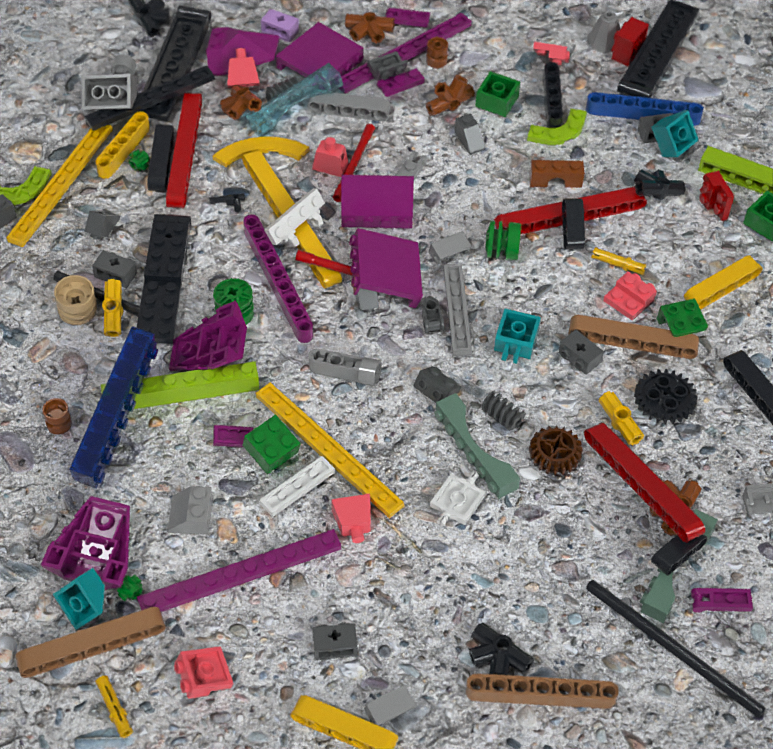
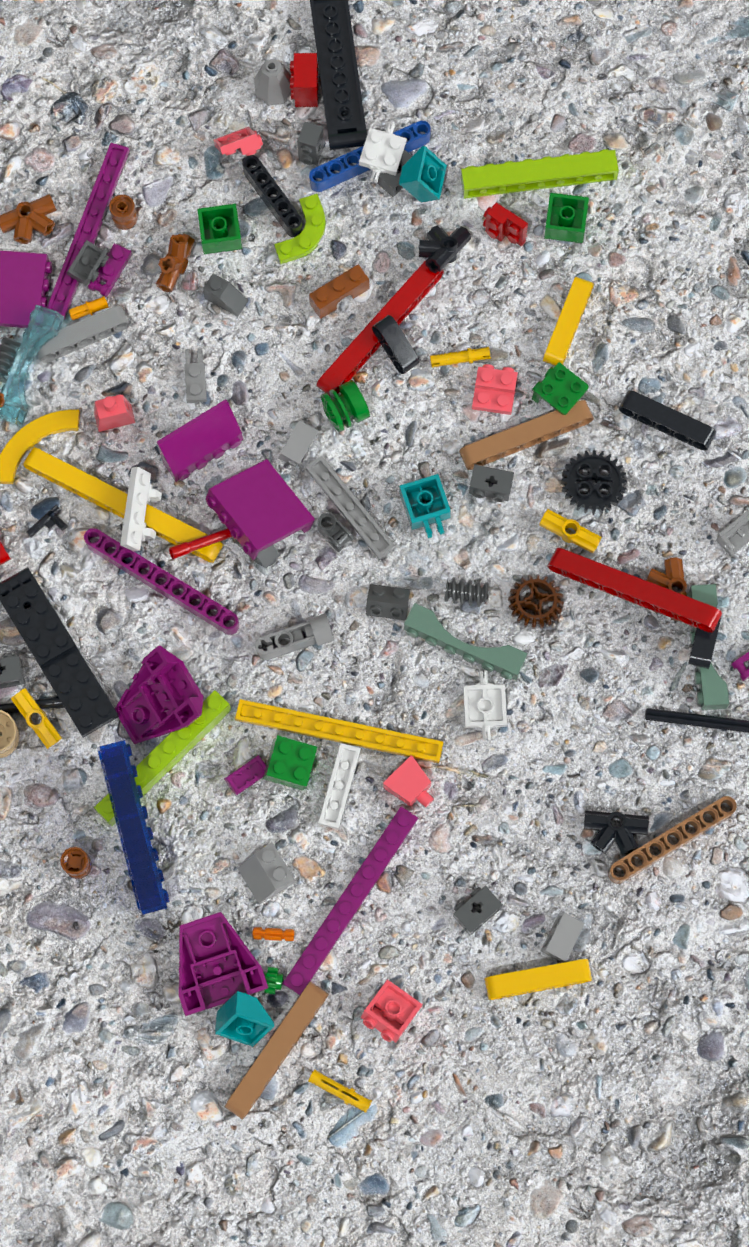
camera: 30 degrees left, 20 degrees up
(160, 558) = (273, 934): none -> orange axle
(235, 290) = (140, 625): green wheel -> none
(365, 138) = (145, 437): red piece -> none
(368, 93) = (88, 308): none -> light orange axle
(409, 17) = (59, 181): magenta plate -> none
(604, 76) = (310, 143): none -> dark grey brick
(654, 105) = (382, 151): none -> white plate

